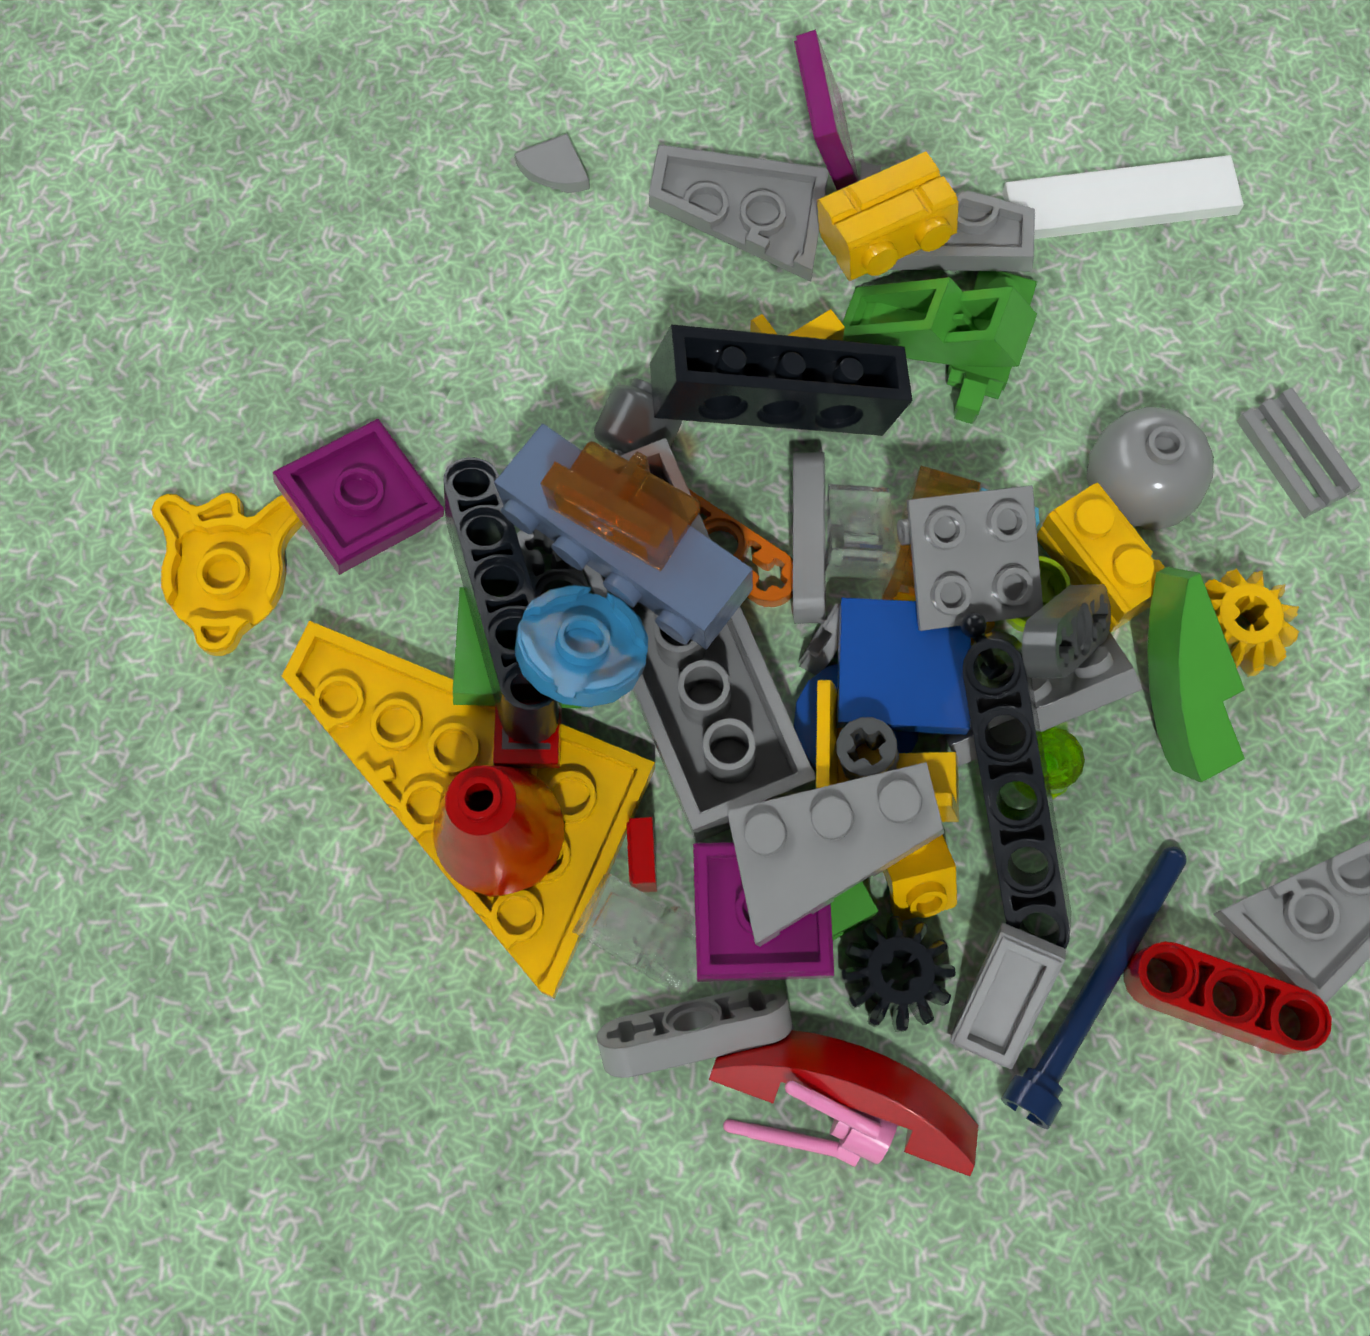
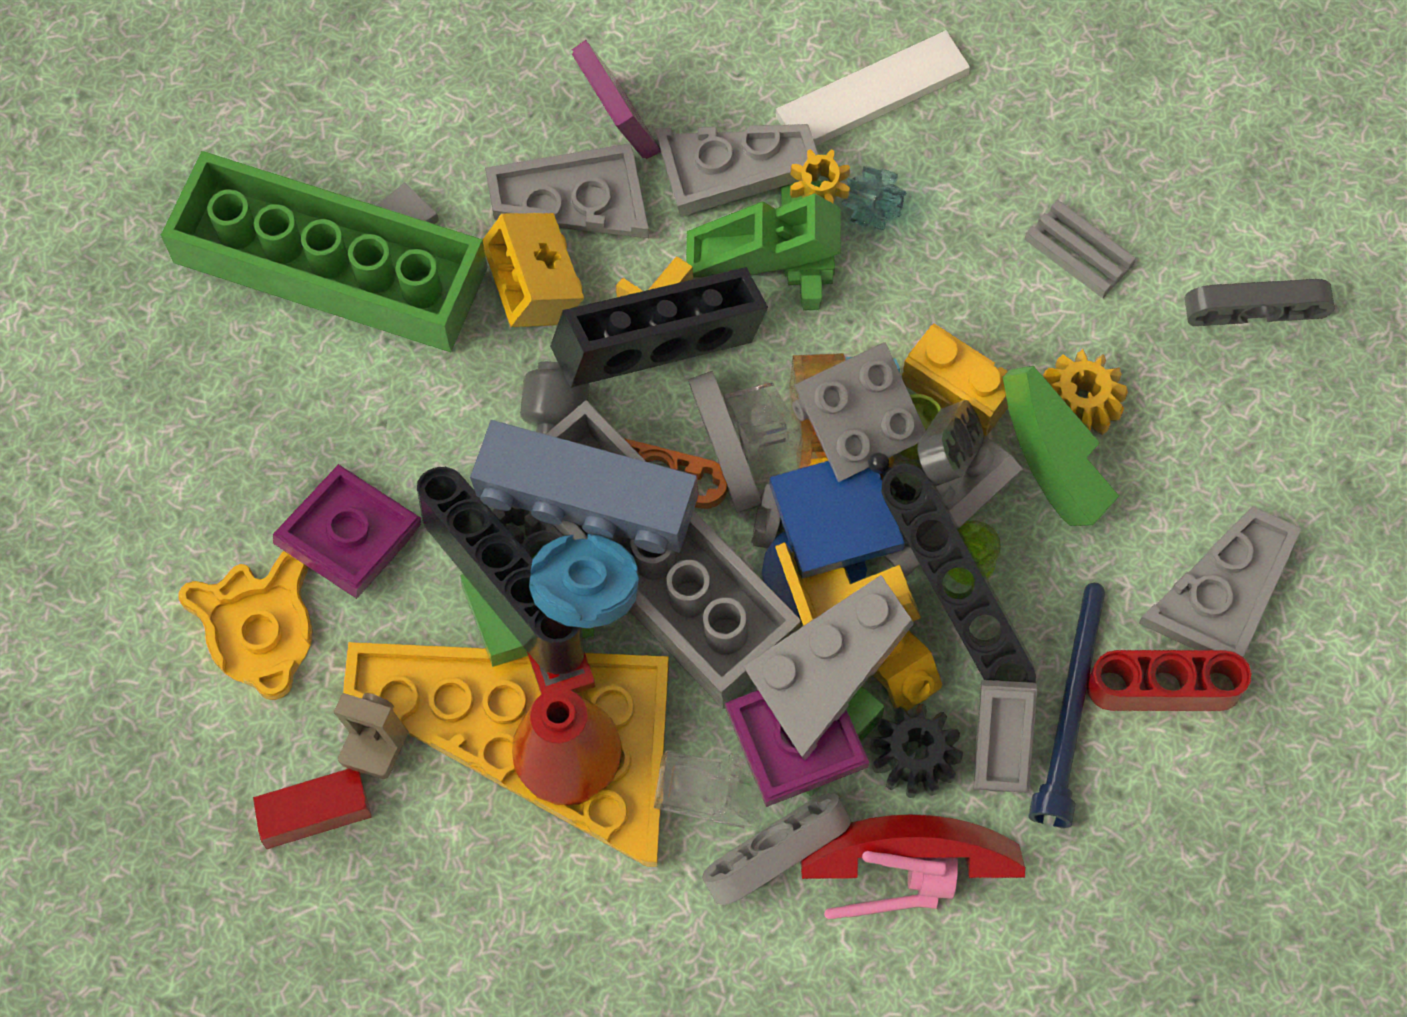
camera: 20 degrees left, 5 degrees down
(202, 790) = (311, 808): none -> red slope
(295, 738) = (373, 734): none -> dark tan bracket
(451, 179) = (325, 251): none -> bright green brick
(621, 503) = (578, 459): clear orange panel -> none
(641, 854) = (685, 728): red tile -> none
(666, 269) = (531, 268): none -> yellow brick
(876, 736) = (832, 571): dark grey bush -> none
(888, 217) = (695, 168): yellow brick -> none
(1026, 259) = (811, 171): none -> yellow gear
(1080, 316) = (874, 197): none -> clear light blue gear
(1152, 466) = (972, 296): light grey cylinder -> none

